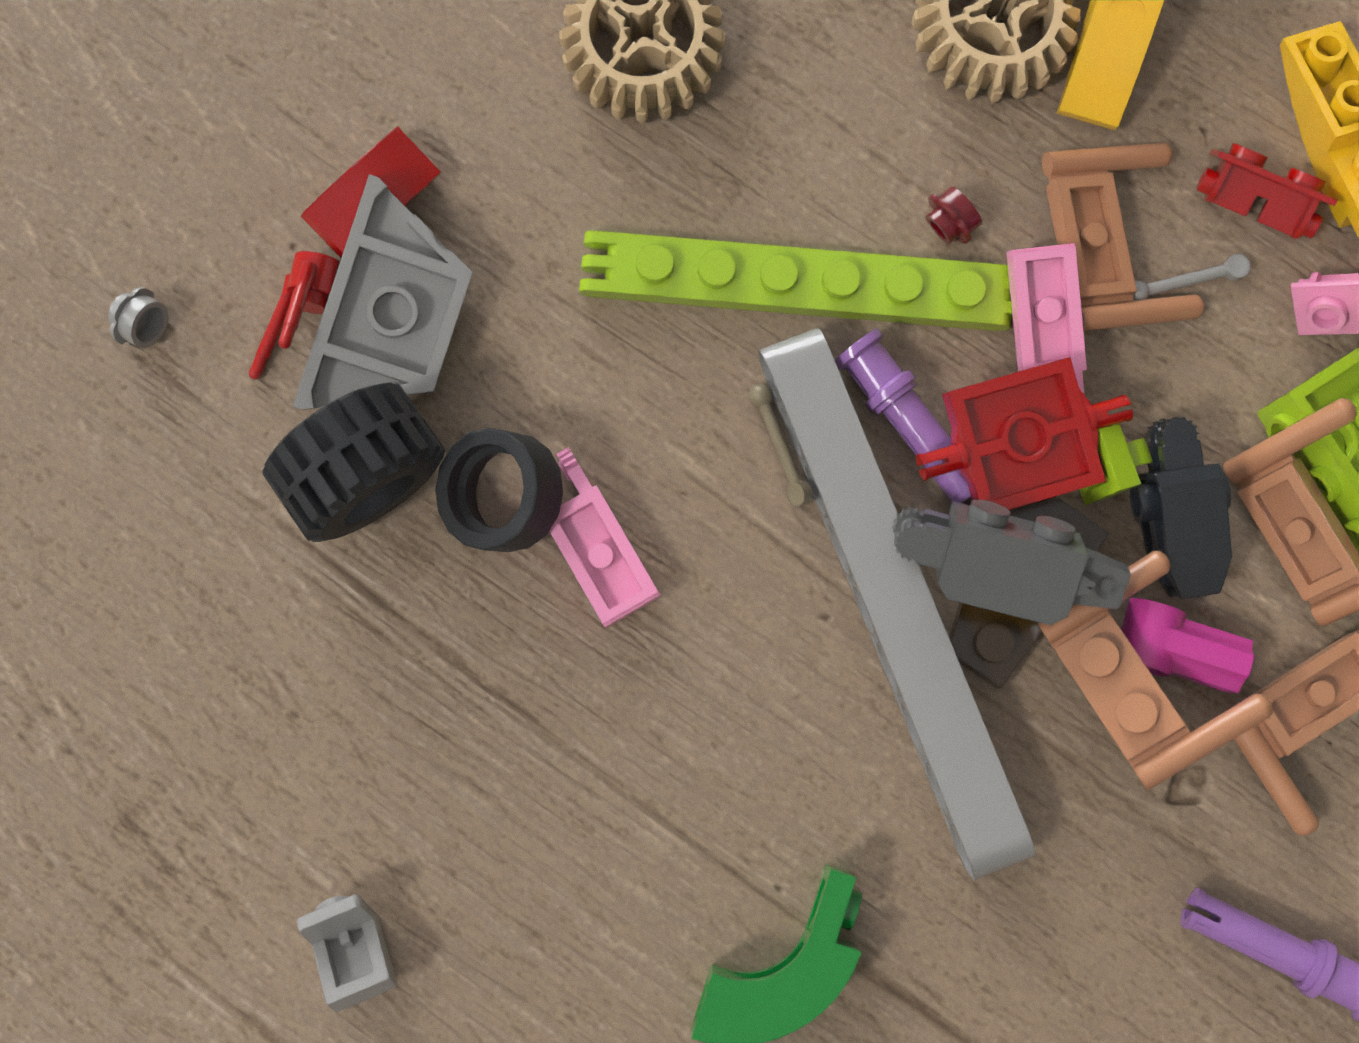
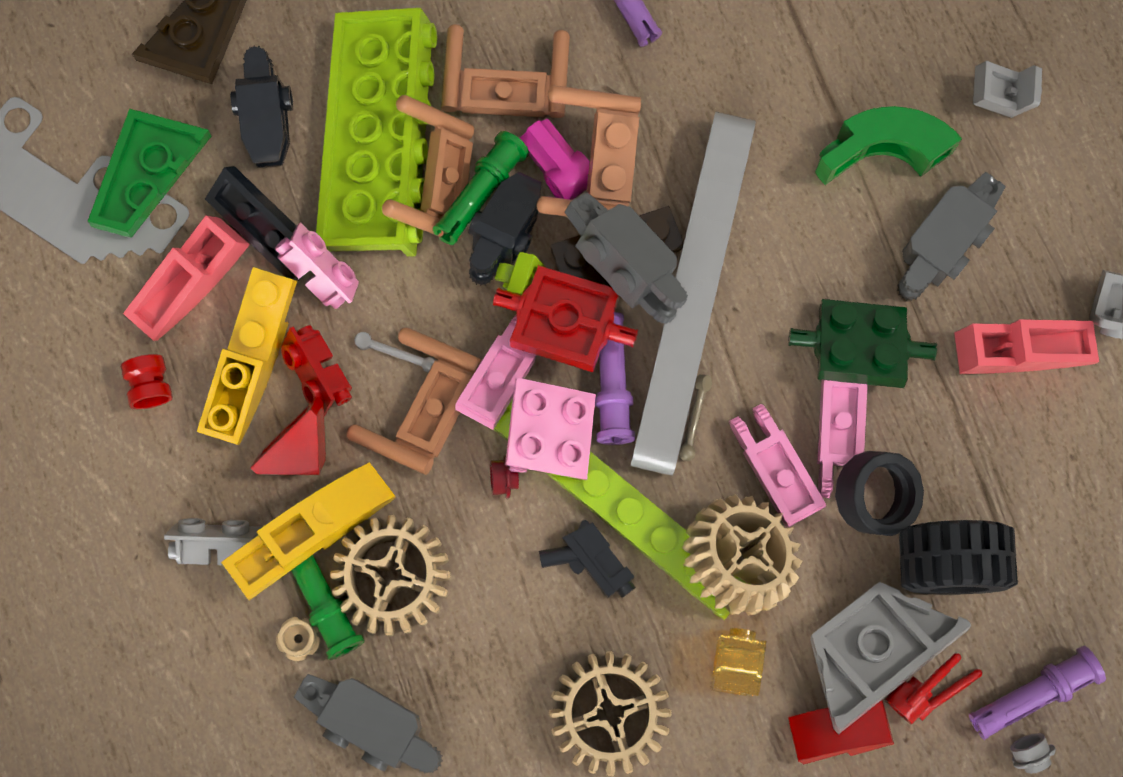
camera: 145 degrees left, 5 degrees down
(155, 414) = (1054, 684): none -> medium lavender pin
(432, 813) = (1025, 346): none -> coral slope
(535, 186) = (738, 663): none -> clear yellow brick
(607, 329) = (766, 562): none -> tan gear
(625, 900) = (947, 234): none -> dark grey hinge
(638, 445) = (779, 469): none -> bright pink hinge
(640, 672) = (862, 343): none -> dark green plate
(788, 203) = (592, 552): none -> black piece
(942, 290) = (550, 429): none -> bright pink hinge
(1210, 81) = (298, 447): none -> slope
(1252, 569) = (488, 176): none -> green pin

